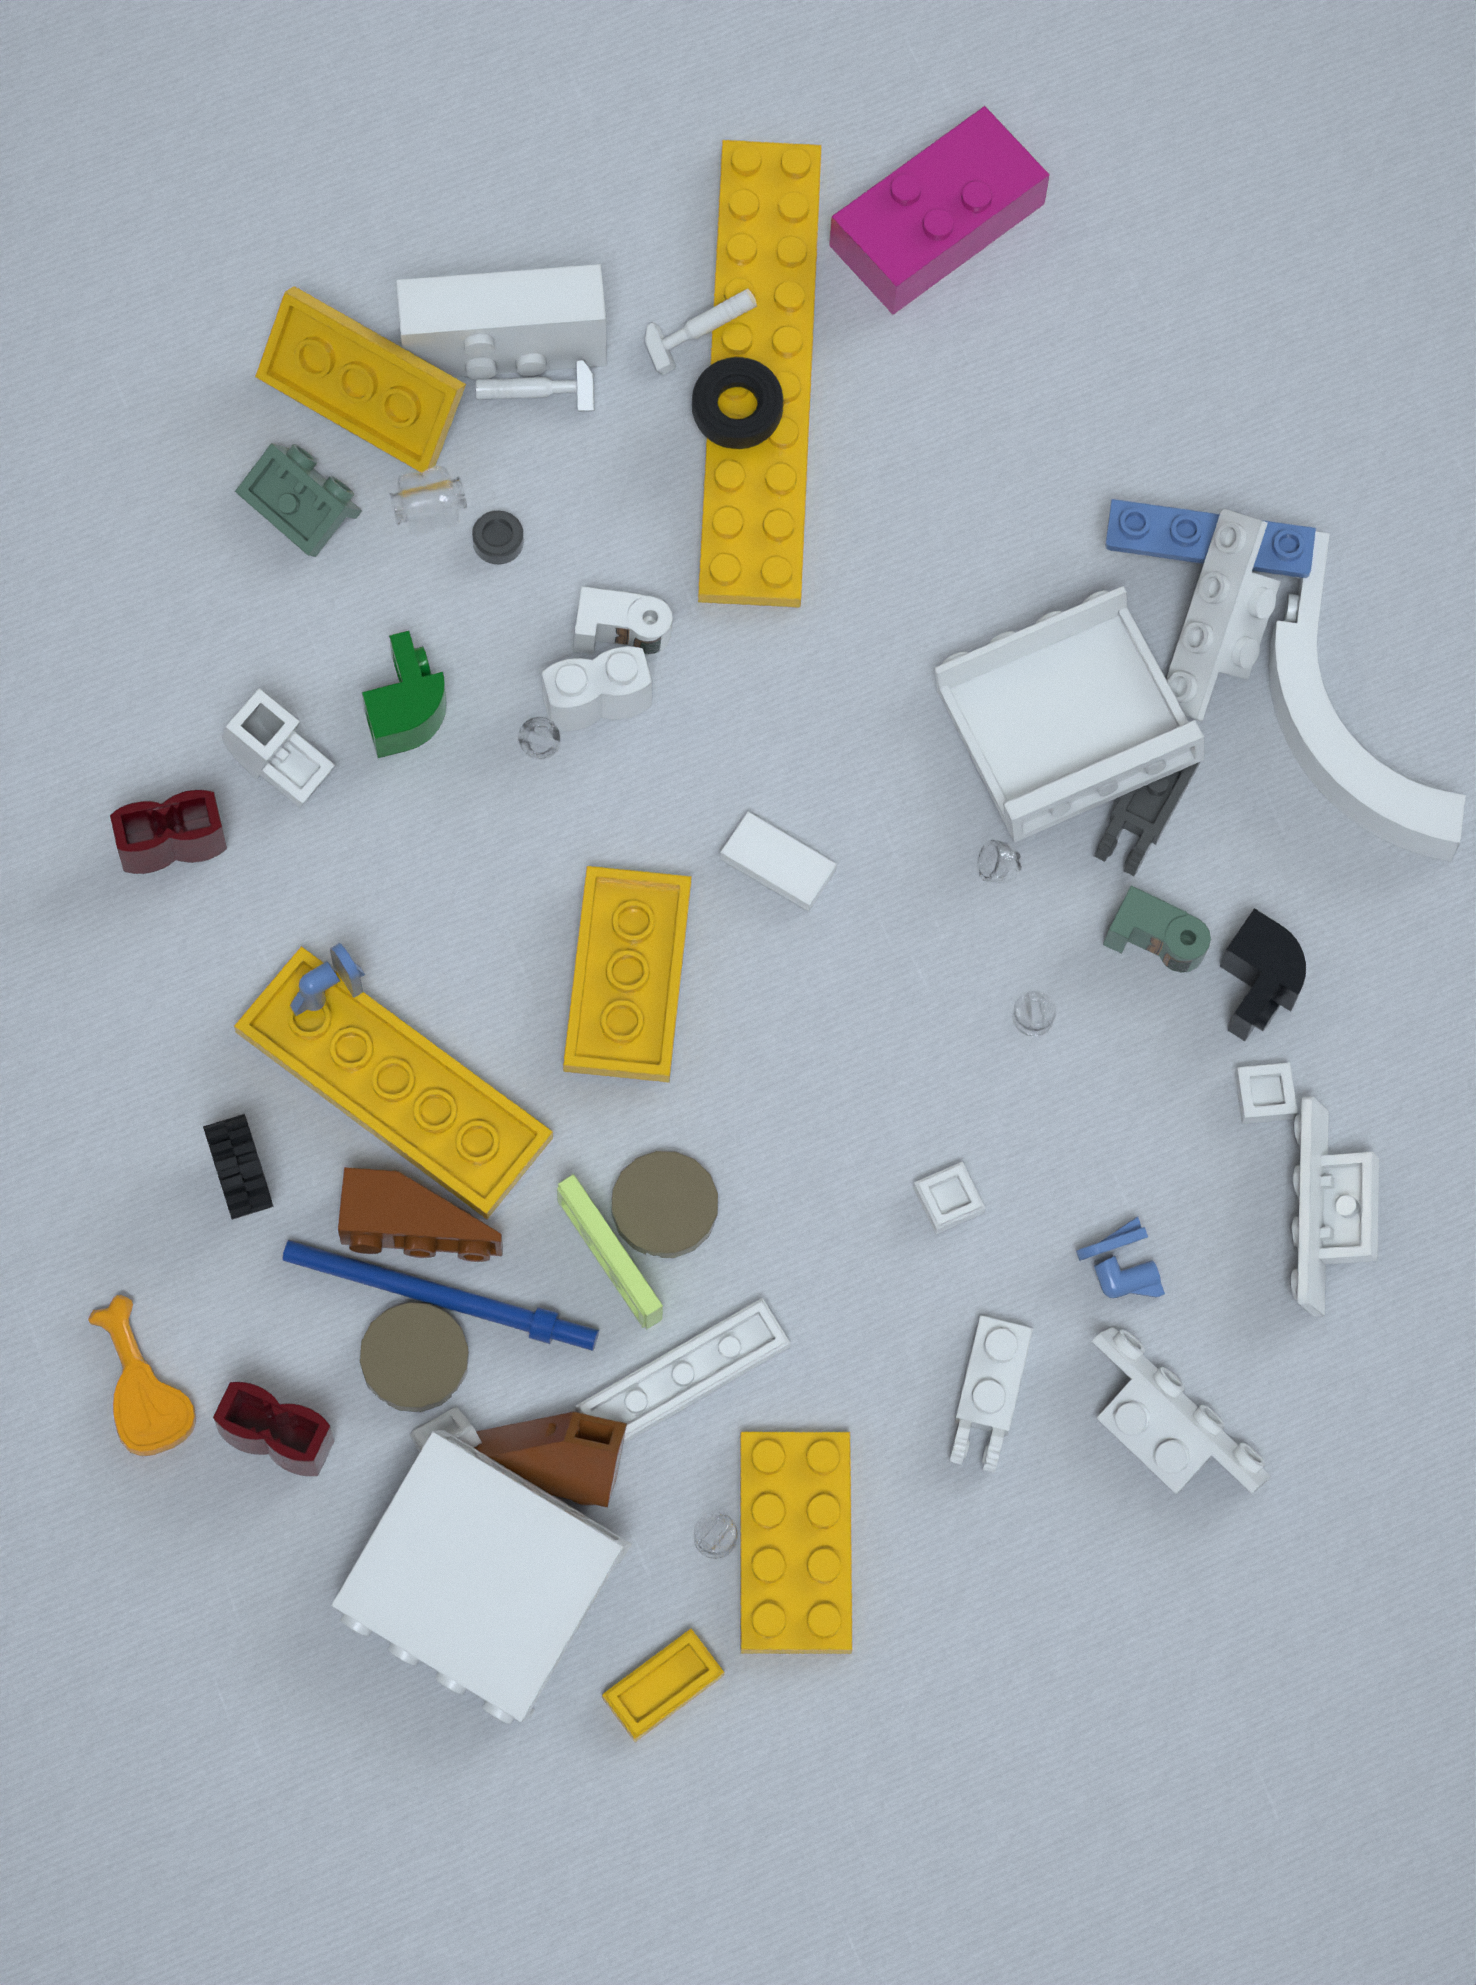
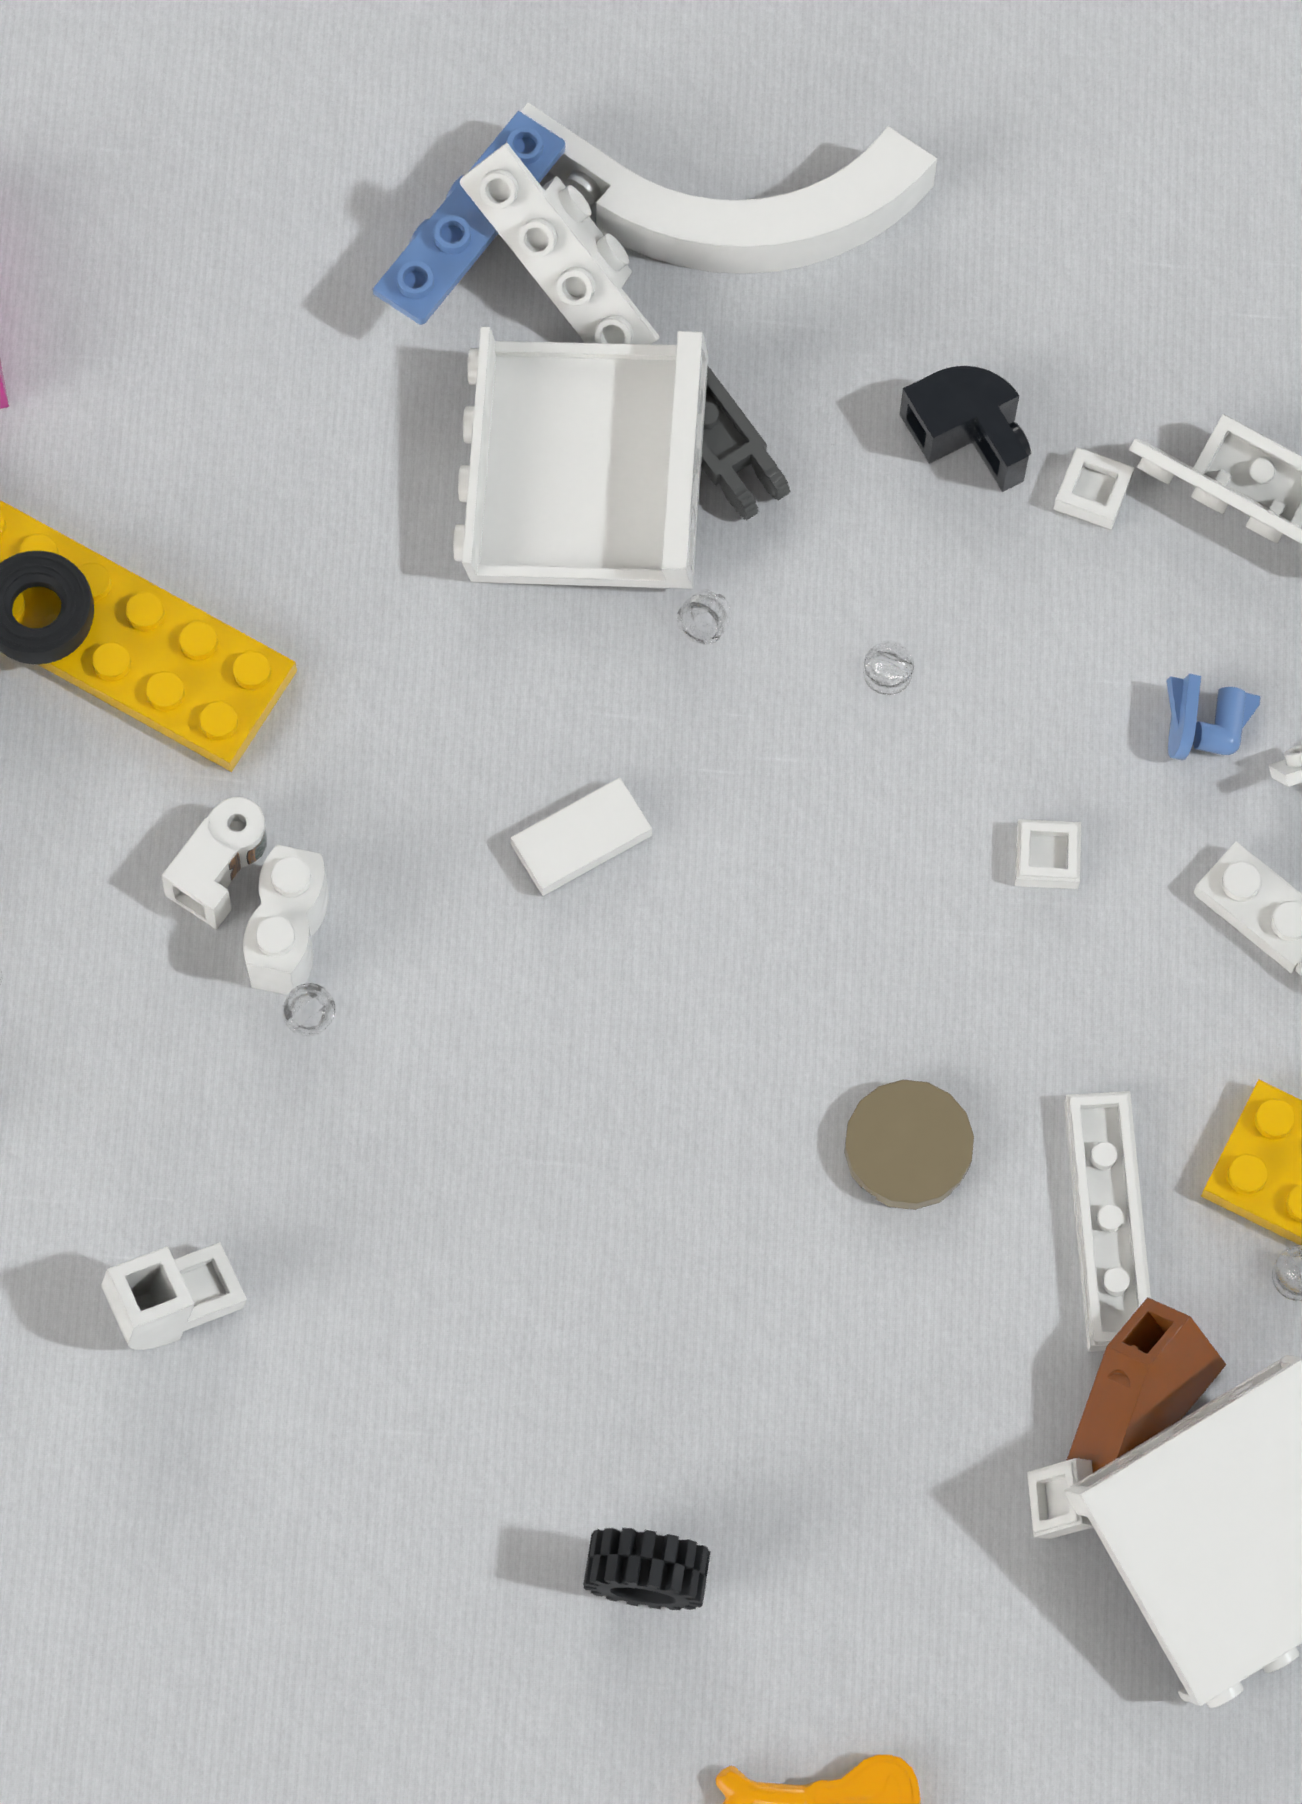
camera: 60 degrees left, 0 degrees up
(158, 834) = (198, 1477): dark red brick -> none
(260, 1425) = (952, 1683): dark red brick -> none
(314, 983) = (482, 1345): medium blue piece -> none
(397, 1087) = (624, 1359): yellow plate -> none
(398, 1213) = (780, 1423): dark orange slope -> none
(408, 711) = (197, 1126): green brick -> none
(414, 1357) = (948, 1490): dark tan tile -> none
(497, 537) = (38, 941): dark grey tile -> none
(541, 1324) = (979, 1339): blue bar -> none
(609, 1252) = (939, 1225): yellowish green tile -> none
(627, 974) = (630, 1052): yellow plate -> none
(1160, 929) = (864, 495): sand green leg -> none

